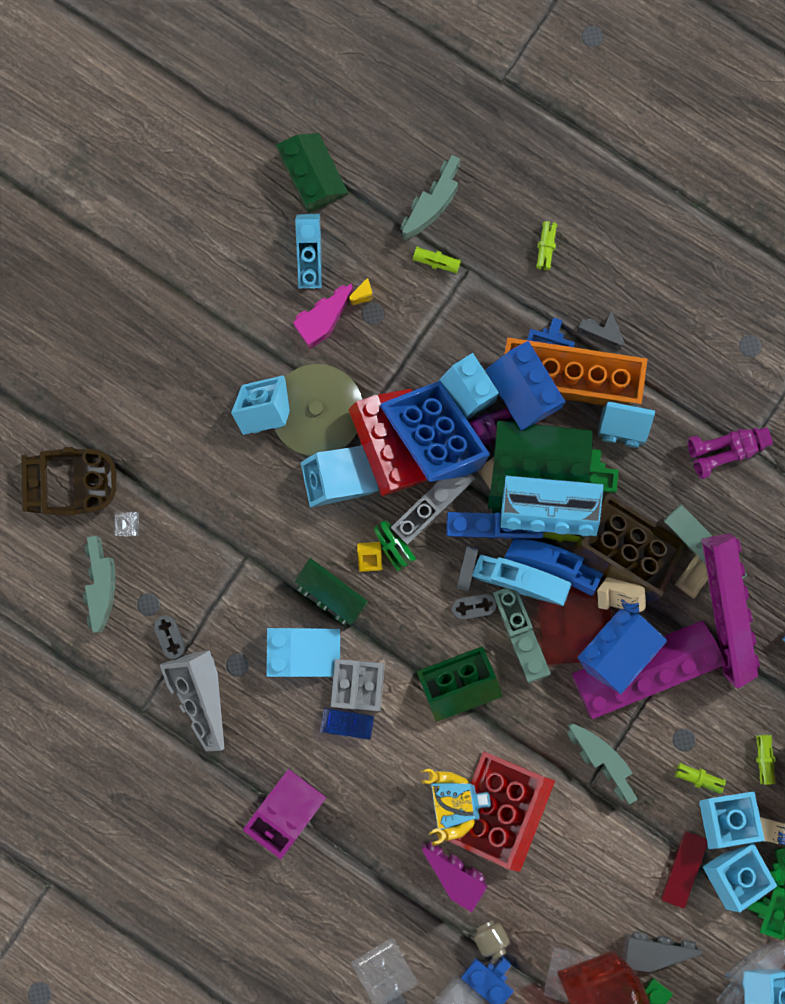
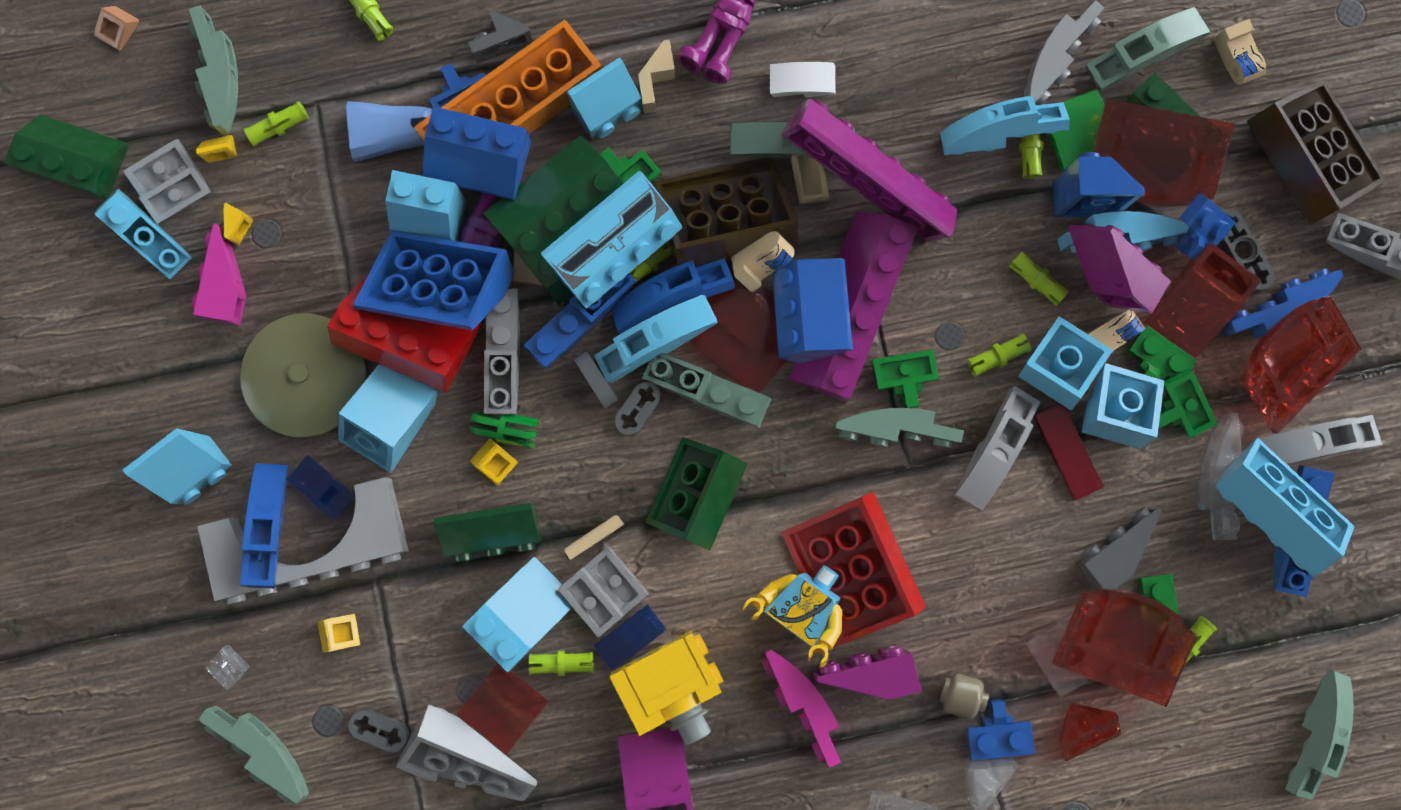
camera: 60 degrees left, 0 degrees up
(92, 475) = (151, 659): dark brown slope -> none
(184, 480) = (373, 535): none -> light grey arch
(199, 564) = (338, 633): none -> yellow slope
(207, 397) = (179, 466): none -> medium azure slope
(219, 471) = (263, 525): none -> blue slope
(244, 691) = (502, 708): none -> clear red slope
(262, 405) = (244, 423): medium azure slope -> none
(267, 479) = (321, 487): none -> clear blue slope
(298, 699) = (561, 663): none -> lime pin
(342, 771) = (670, 687): none -> yellow piece
(349, 234) = (167, 181): none -> light grey slope
(382, 651) = (594, 537): none -> tan tile
(392, 242) = (217, 149): none -> yellow slope
(404, 123) = (115, 26): none -> nougat slope
(406, 846) = (800, 693): none -> dark pink slope
(491, 320) = (382, 128): none -> medium blue piece
(637, 736) = (905, 374): none -> green hinge
(646, 829) = (998, 450): none -> light grey slope
(673, 434) = (657, 69): none -> tan slope
(747, 518) = (803, 78): none -> white slope

